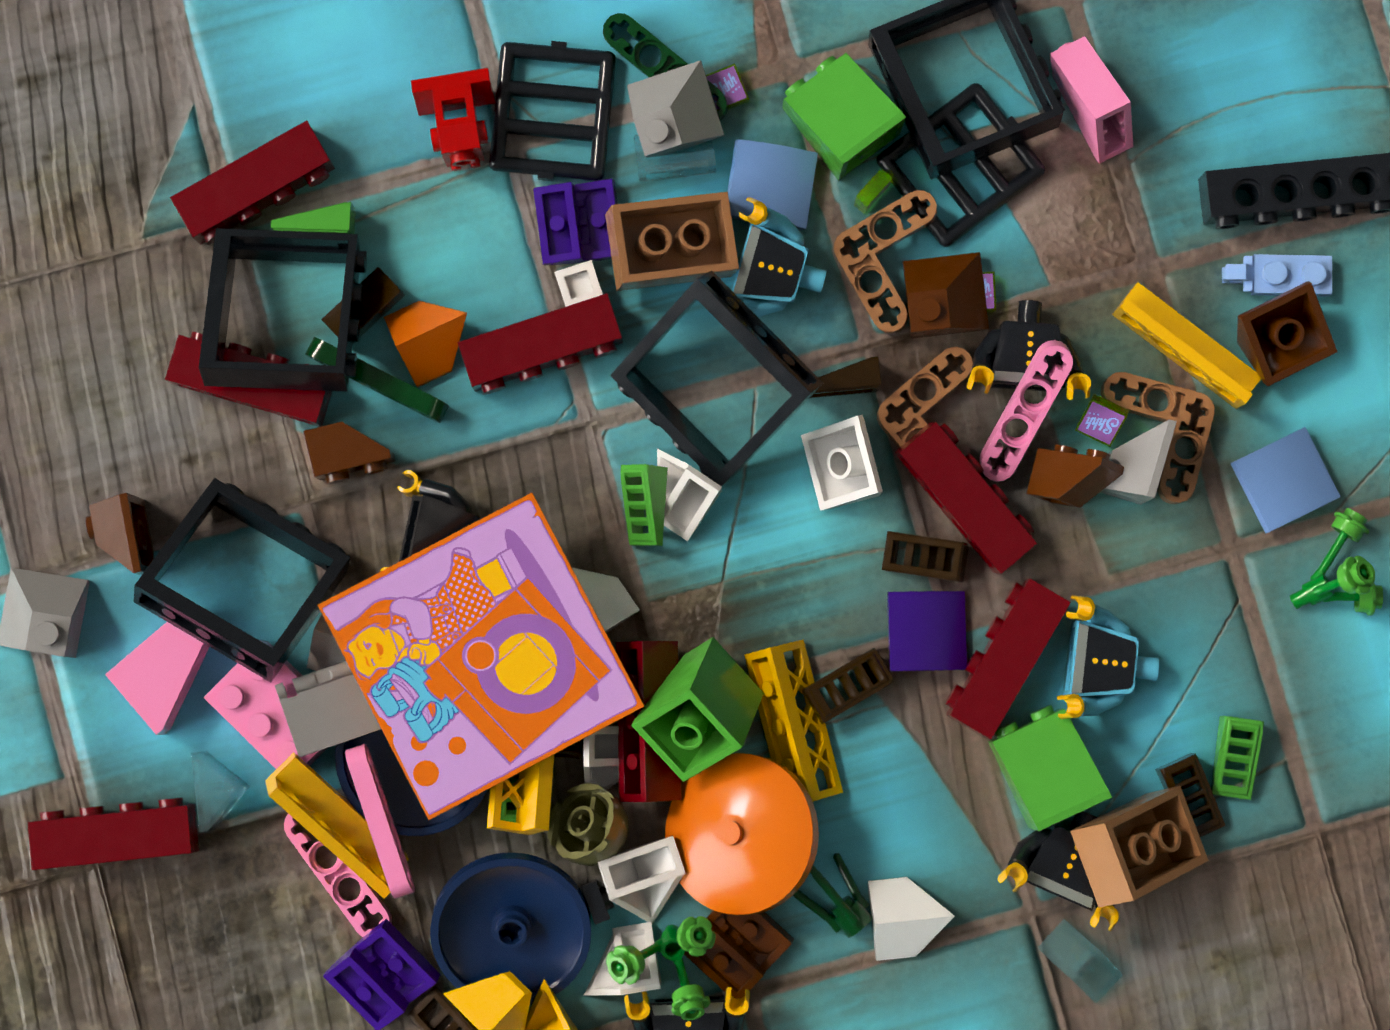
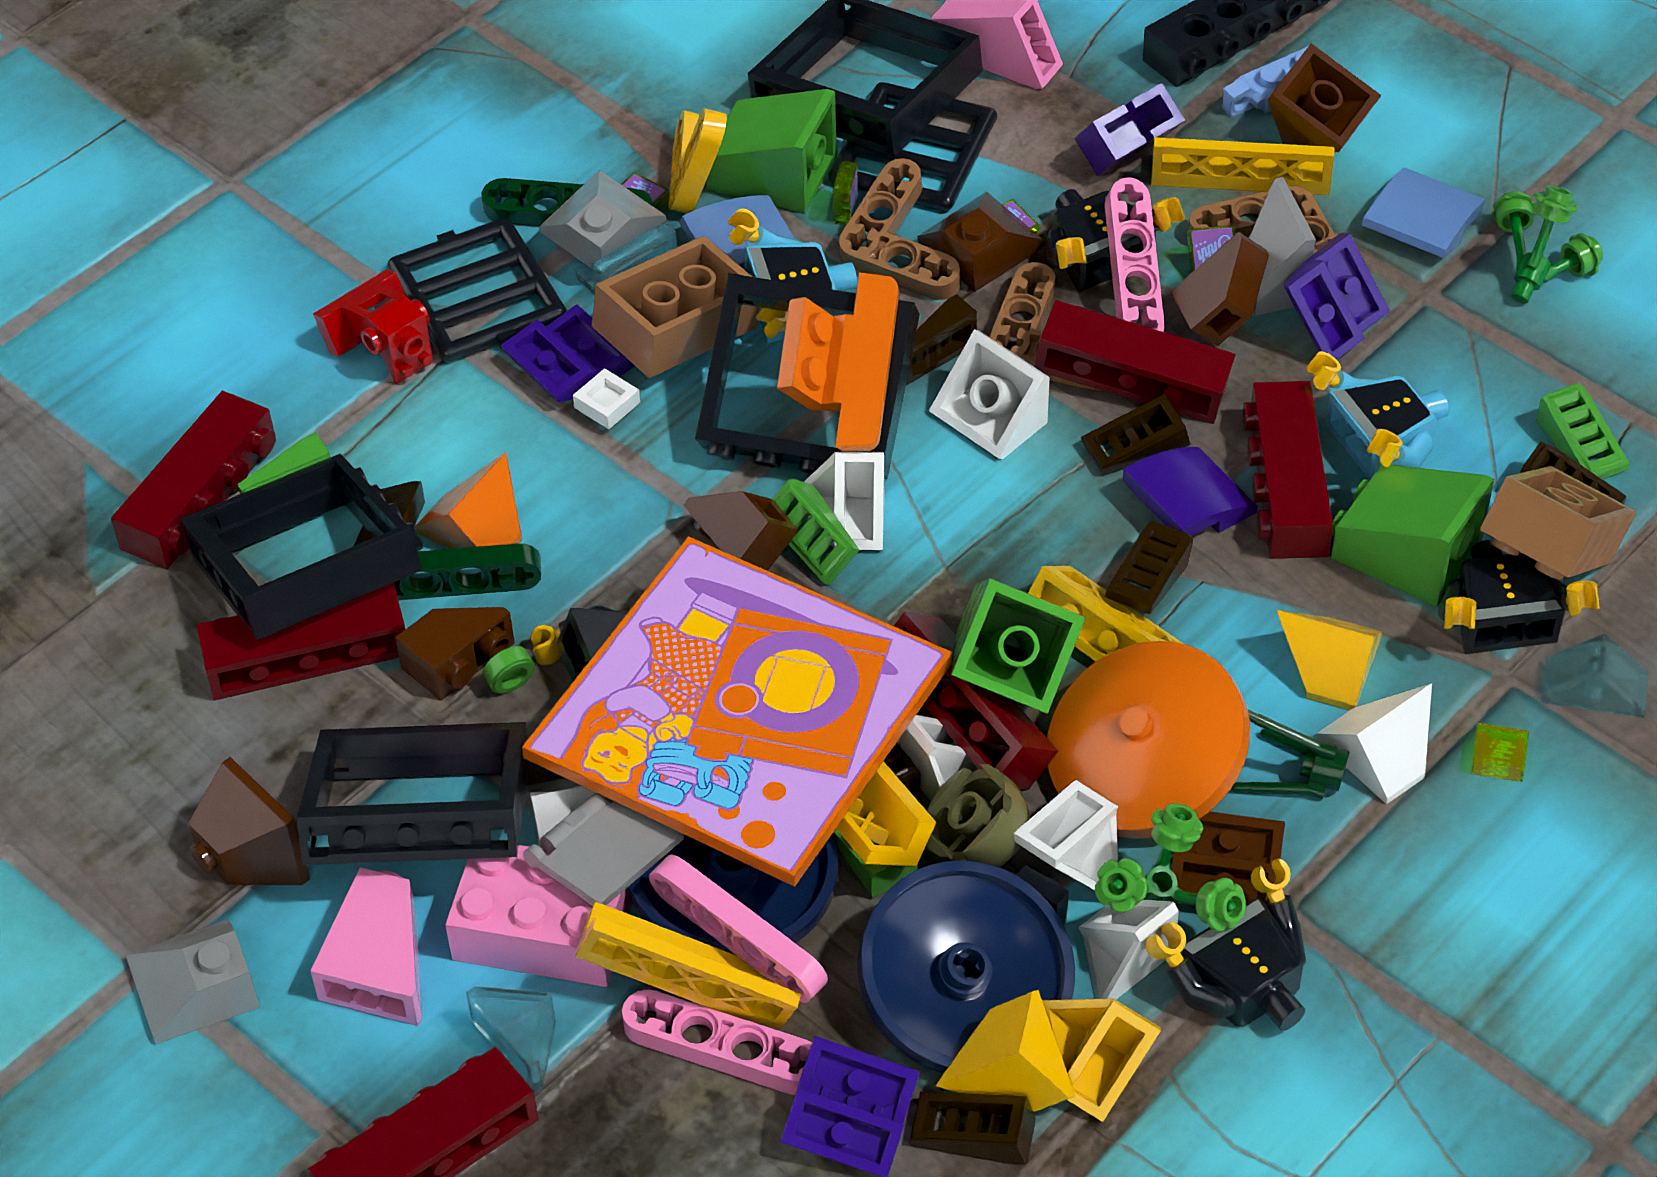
camera: 30 degrees left, 35 degrees down
(371, 494) = (508, 670): none -> bright green tile
(540, 343) = (600, 459): dark red brick -> none
(596, 471) = (743, 525): none -> reddish brown slope
(732, 407) = (843, 360): none -> orange plate
(770, 106) = (694, 152): none -> yellow beam
(924, 829) = (1330, 656): none -> yellow slope
(976, 972) = (1499, 752): none -> clear neon green tile
(1138, 260) = (1136, 126): none -> dark purple piece
(1147, 533) = (1336, 296): none -> dark purple slope

